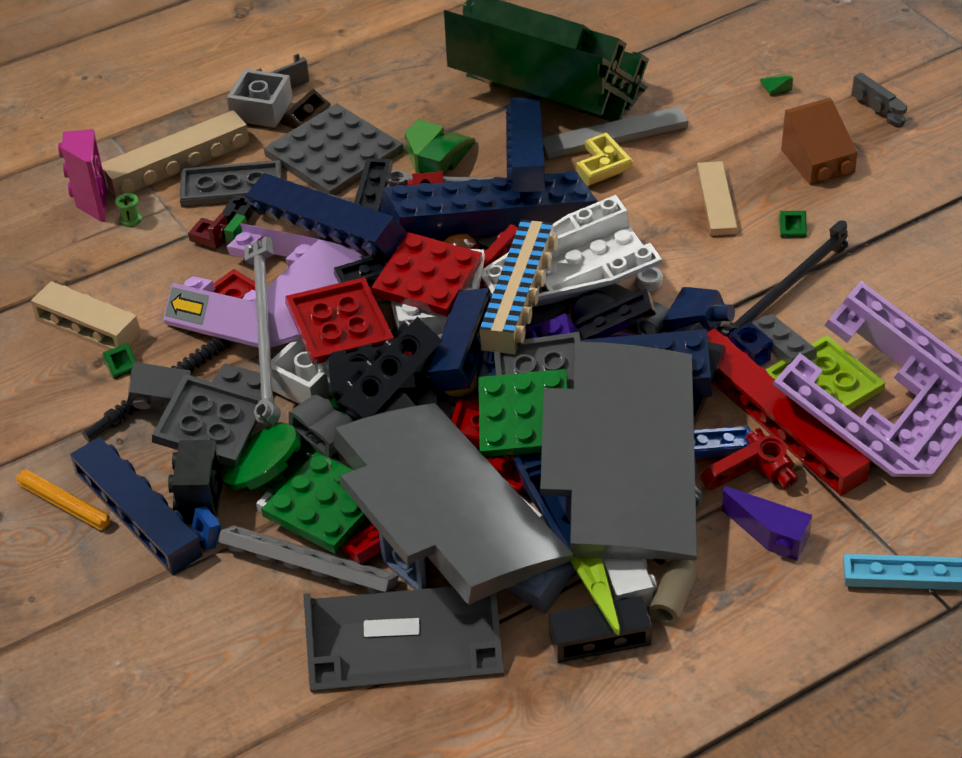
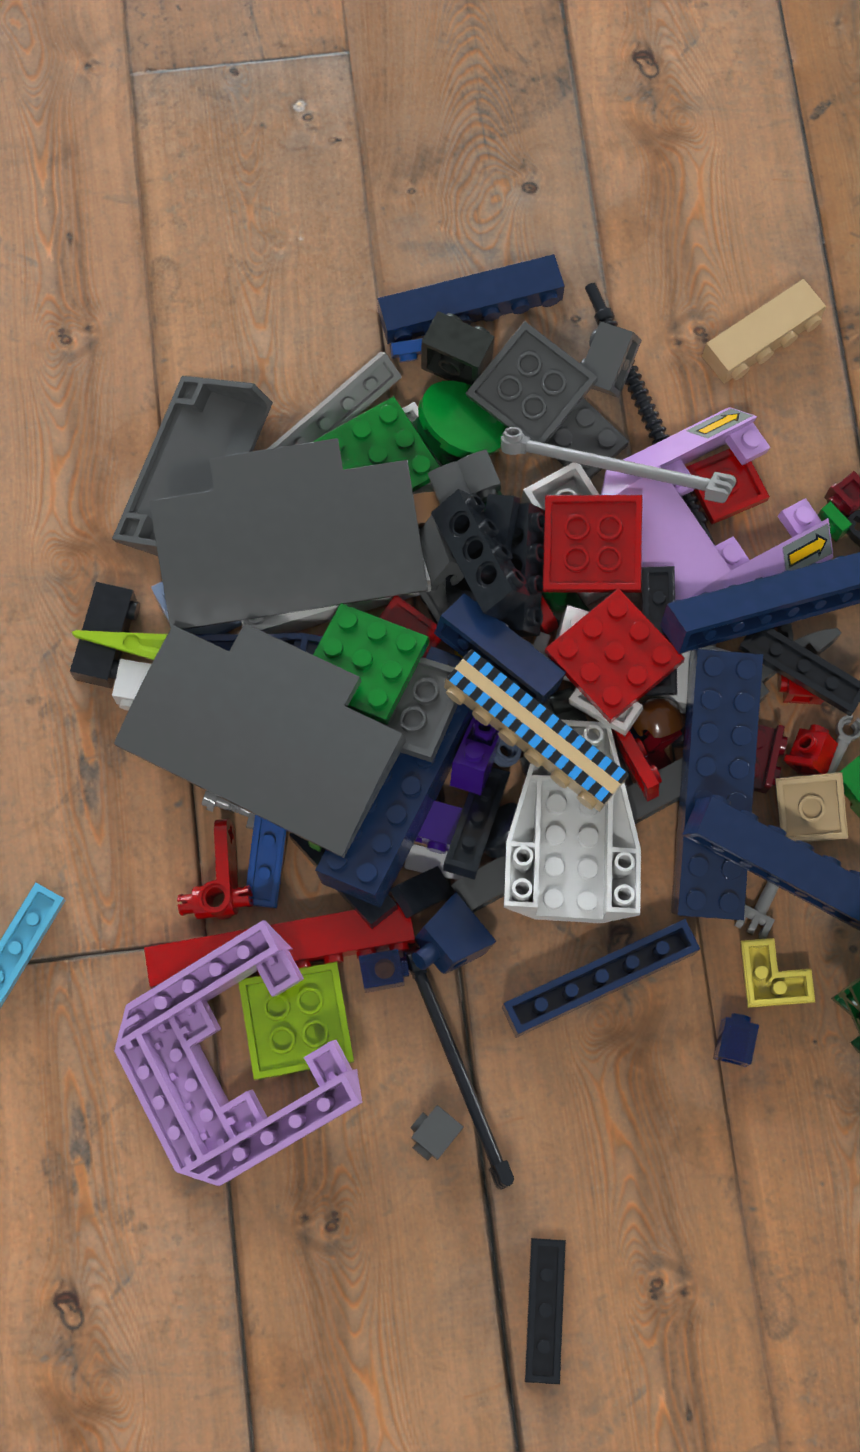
camera: 110 degrees right, 30 degrees up
(63, 499) = (516, 243): light orange axle -> none
(119, 360) = (686, 347): green slope -> none
(391, 627) = (203, 477): white sticker -> none
(469, 164) = (812, 807): none -> tan tile
(620, 131) = (827, 1026): light grey tile -> none
(649, 279) = (549, 932): white tile -> none
(659, 162) = (736, 1040): none -> clear blue brick
(673, 592) = (103, 715): dark tan brick -> none
(677, 234) = (600, 978): none -> dark blue brick
(716, 198) = (648, 1079): tan tile -> none
(769, 523) = (134, 854): dark purple slope -> none
(777, 83) = (835, 1283): green slope -> none
(786, 342) = (369, 1008): dark grey plate -> none
(792, 223) = (559, 1140): green slope -> none
(818, 142) = (667, 1247): dark orange slope -> none
(839, 277) = (434, 1133): none -> dark grey brick
(879, 99) = (727, 1389): dark grey hinge -> none
(905, 195) = (545, 1311): none -> black tile

